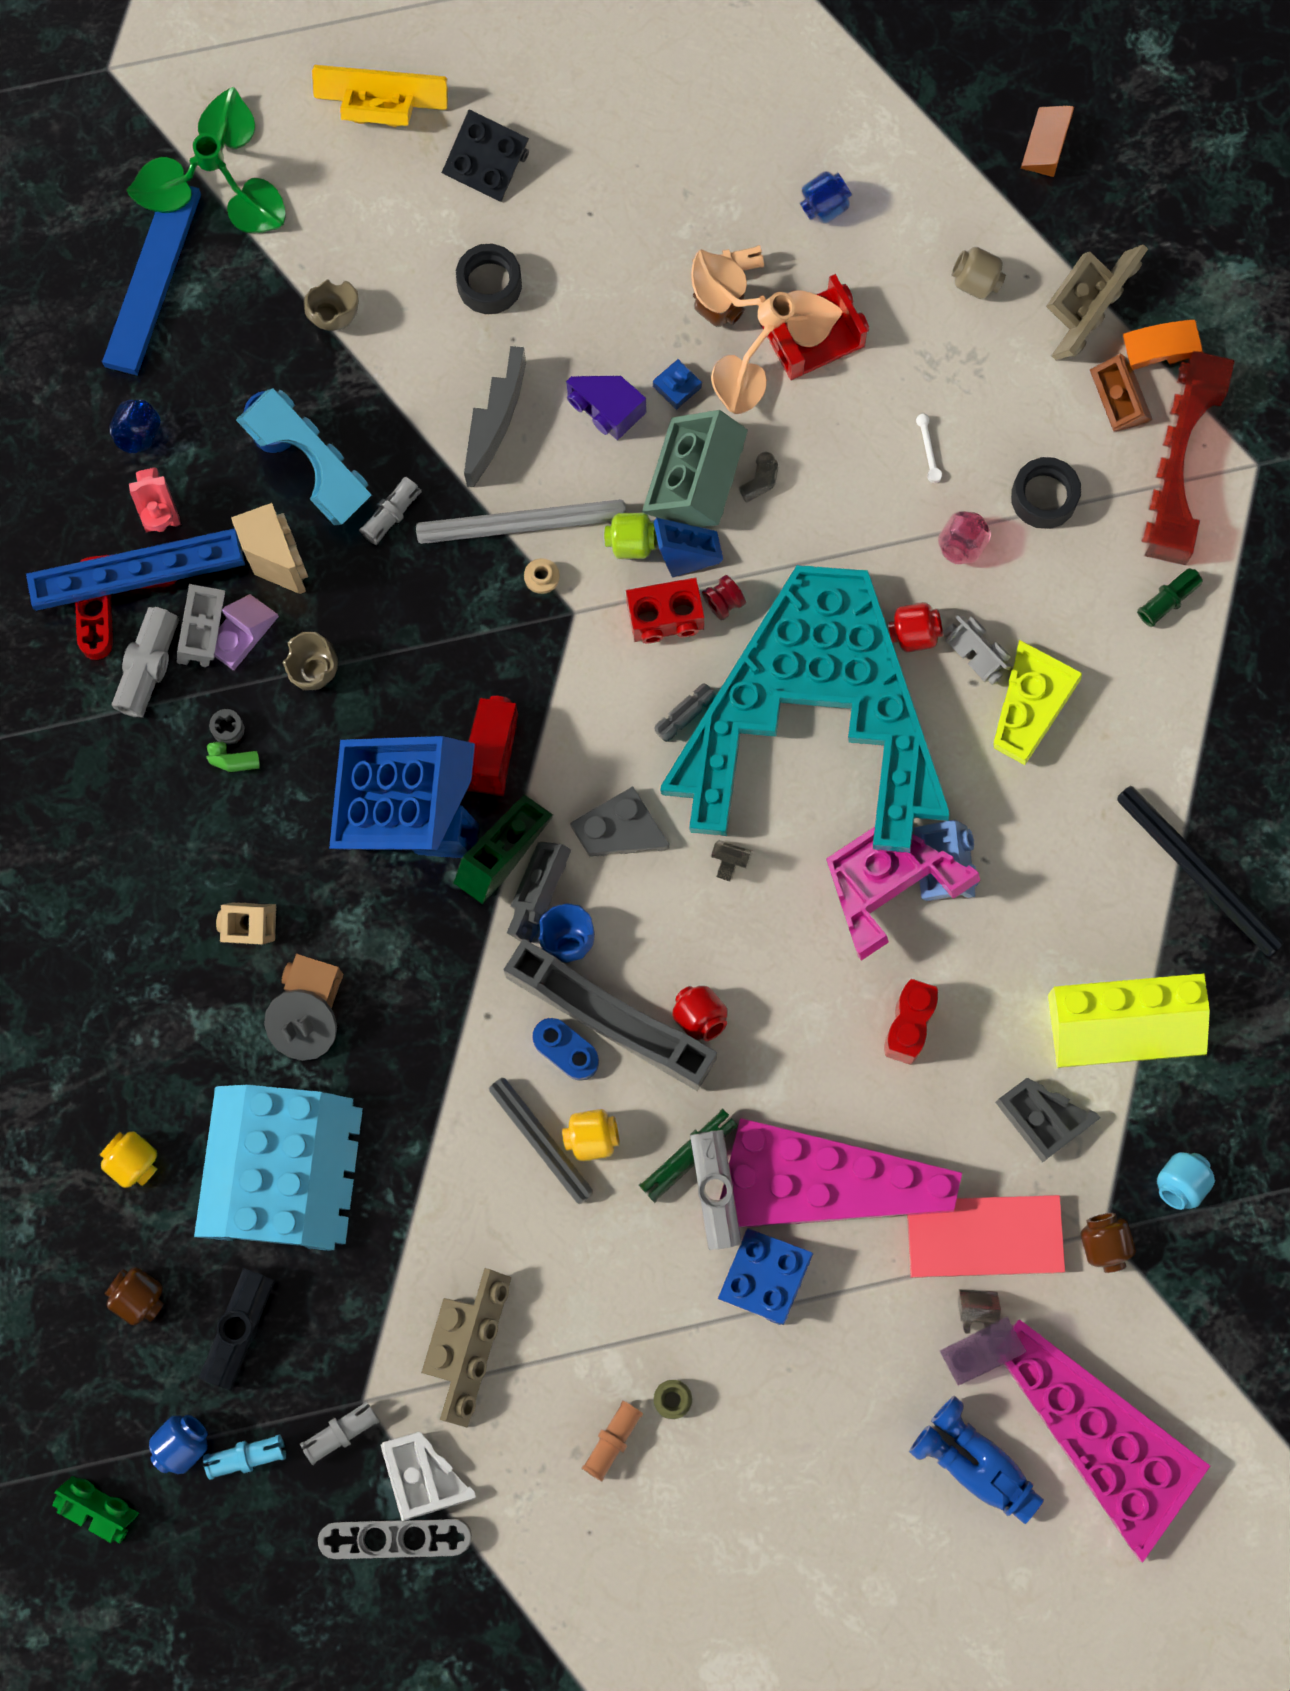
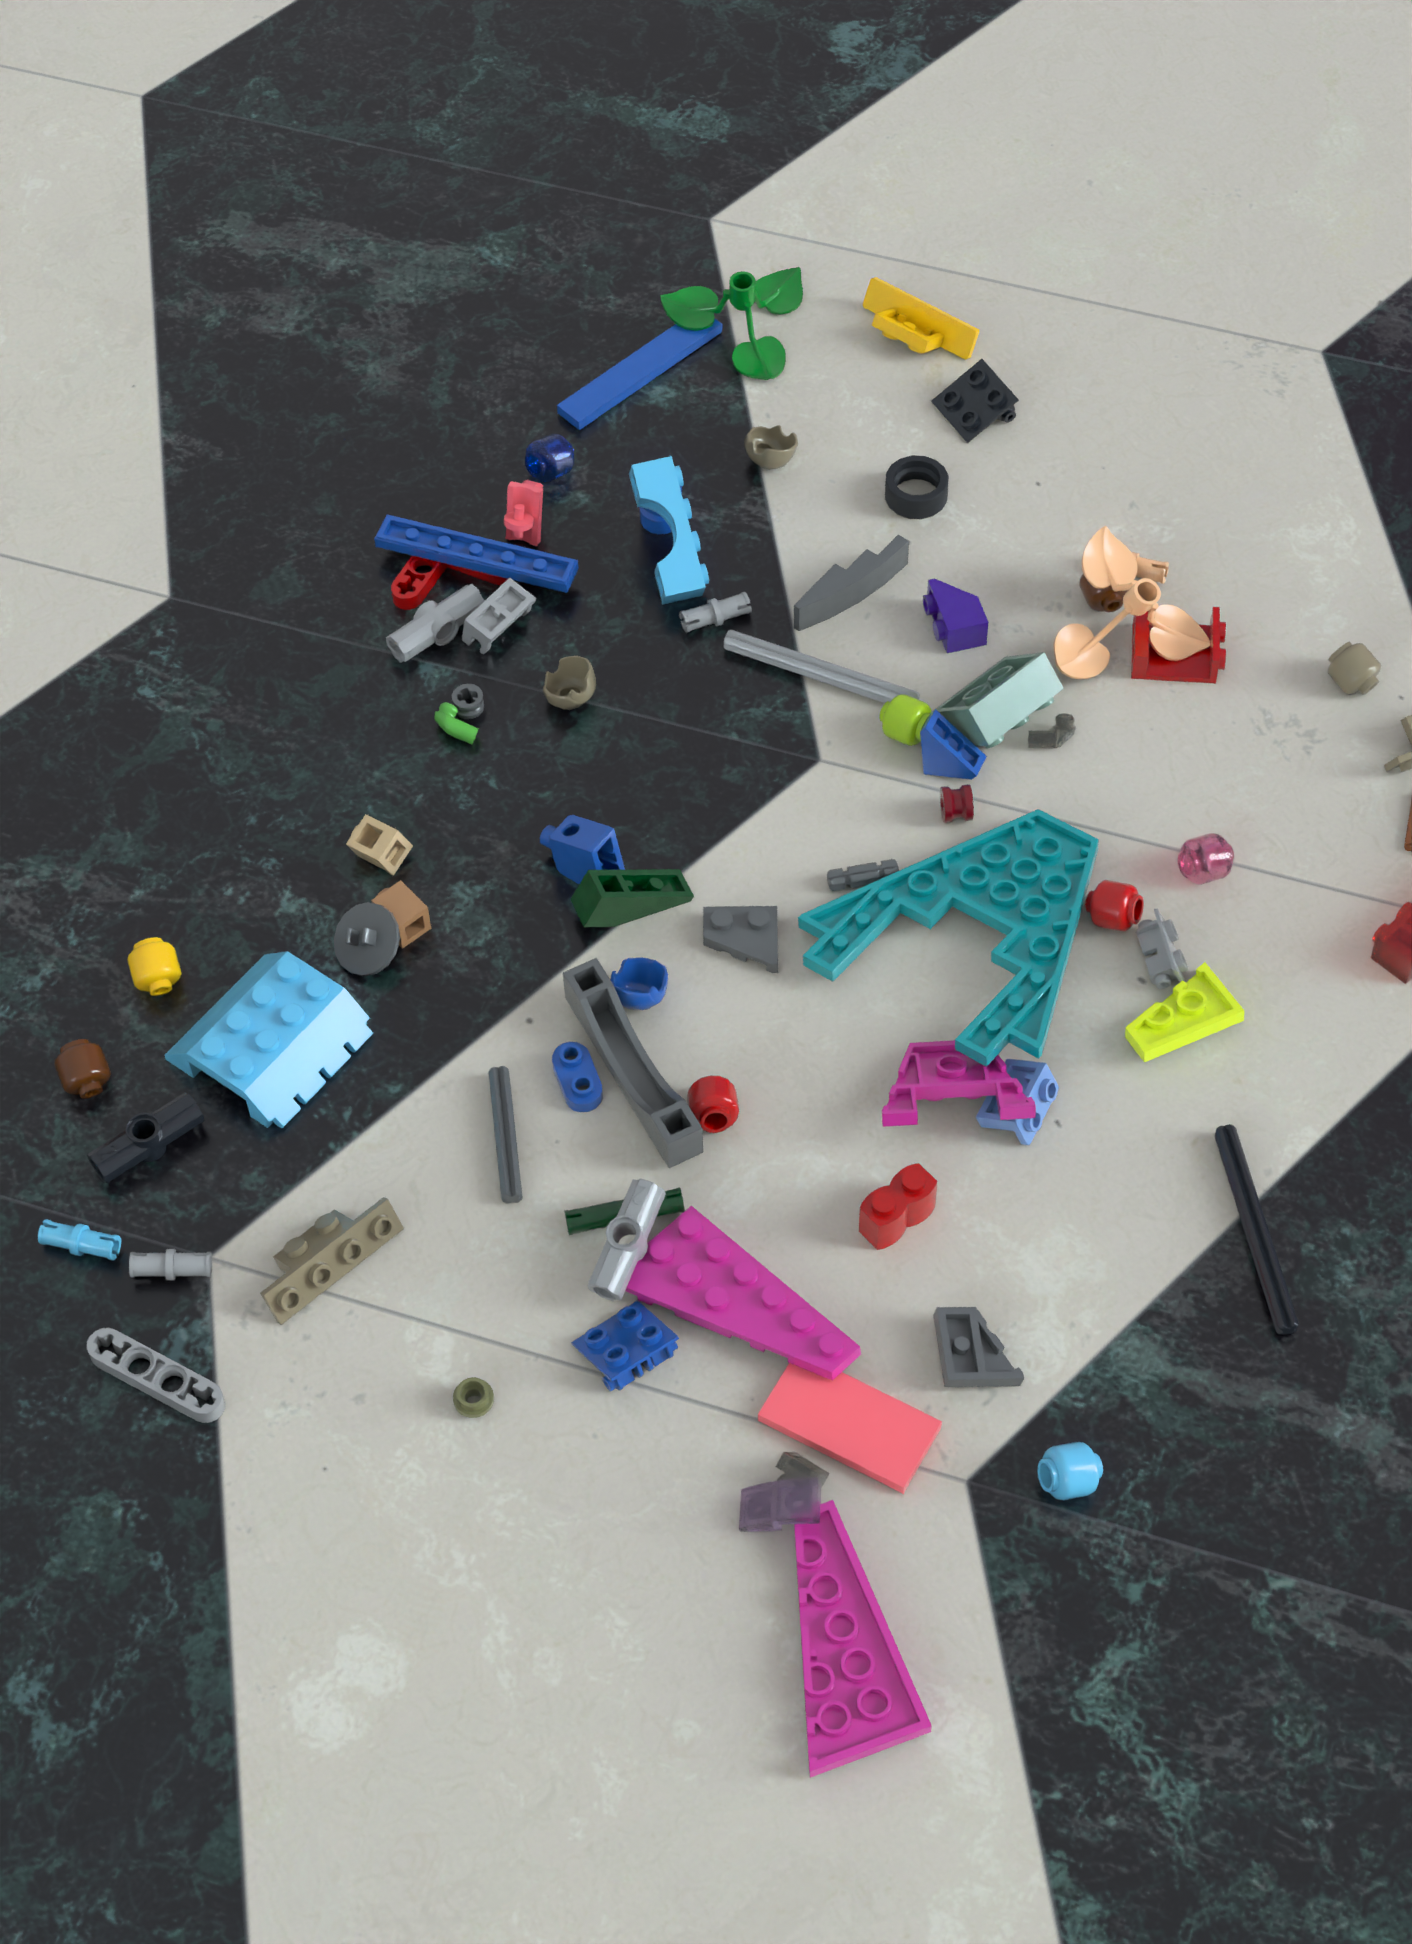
camera: 30 degrees right, 20 degrees down
(178, 1444) = (33, 1198): blue head -> none
(243, 628) = (535, 638): lavender slope -> none
(270, 547) = (595, 583): tan slope -> none
(398, 791) = (573, 789): blue slope -> none
(421, 1477) = (213, 1337): white wing -> none
(493, 740) = (672, 814): red slope -> none
(537, 889) = (636, 942): dark grey hinge -> none
(541, 585) = (809, 717): tan plate -> none
(591, 1135) = (550, 1147): yellow head -> none
(612, 1441) = (396, 1399): nougat pin -> none
(662, 601) = (898, 788): red brick -> none
(677, 384) = (1027, 633): blue tile -> none
(731, 857) = (823, 1001): clear smoke tile -> none
(825, 197) = (1252, 554): clear blue head -> none
(934, 473) = (1213, 804): white hinge -> none
(995, 1478) = (719, 1623): blue piece -> none
(1046, 467) = (1312, 840): black tyre -> none
(1108, 1242) = (960, 1482): reddish brown head -> none
(1129, 1020) = (1105, 1310): neon yellow slope -> none
(1170, 597) = (1371, 996): dark green axle -> none

